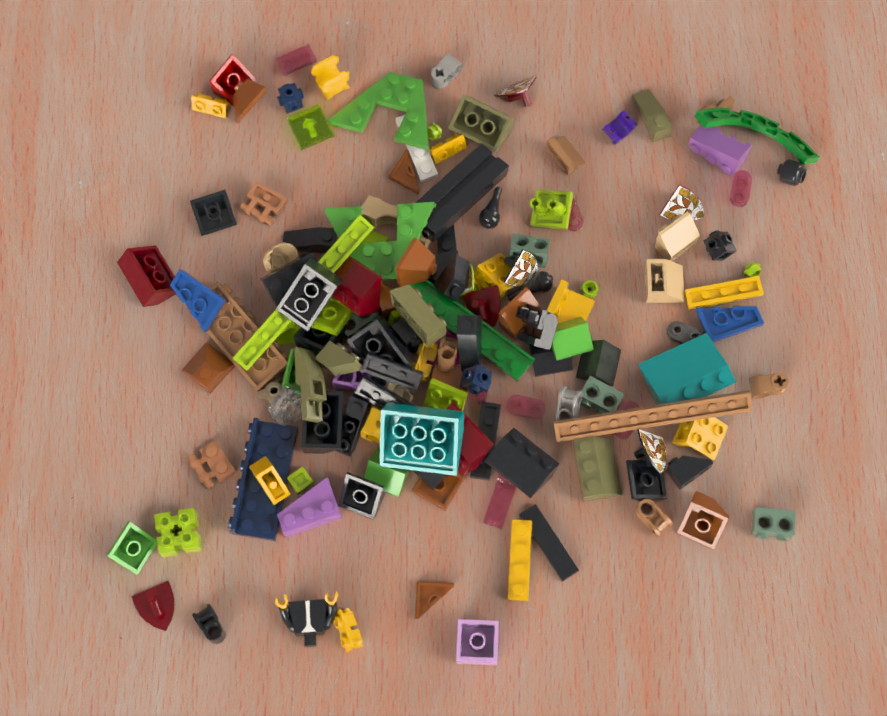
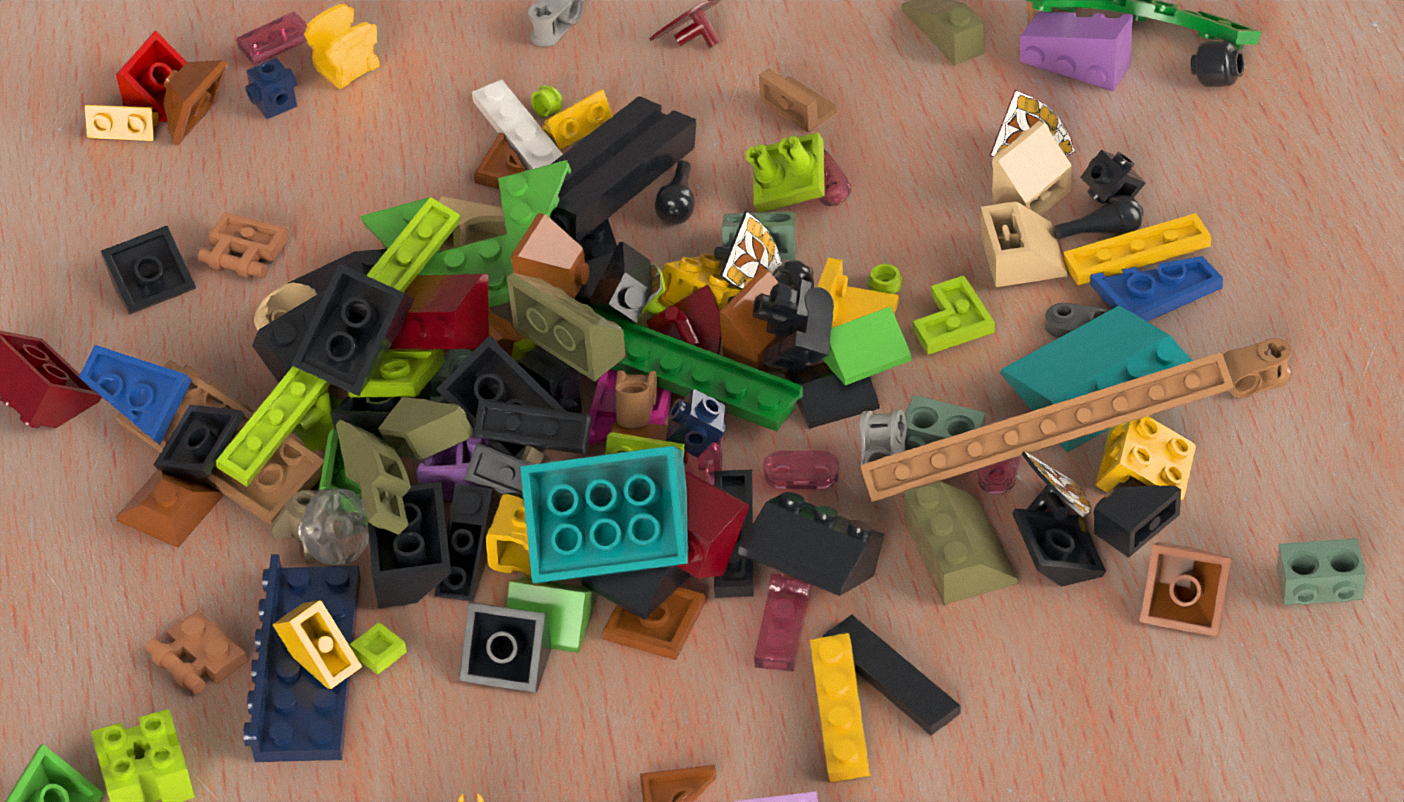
camera: 10 degrees left, 25 degrees down
(226, 339) = (198, 442): none -> black slope
(310, 127) = (314, 129): clear neon green tile -> none
(310, 510) = (405, 689): medium lavender wedge -> none
(393, 92) = (458, 56): bright green wing -> none
(426, 353) = (601, 408): yellow hinge -> none
(469, 340) = (669, 358): black slope -> none
(481, 123) = (634, 67): olive slope -> none
(599, 362) = (930, 374): pearl dark grey slope -> none
(620, 127) = (891, 45): dark purple piece -> none
(624, 323) = (960, 319): none -> lime plate
(653, 518) = (1085, 597): medium nougat piece -> none
(719, 270) = (1118, 216): none -> black piece
(741, 190) = (1130, 100): clear pink plate -> none
(752, 270) = (1182, 206): lime plate -> none

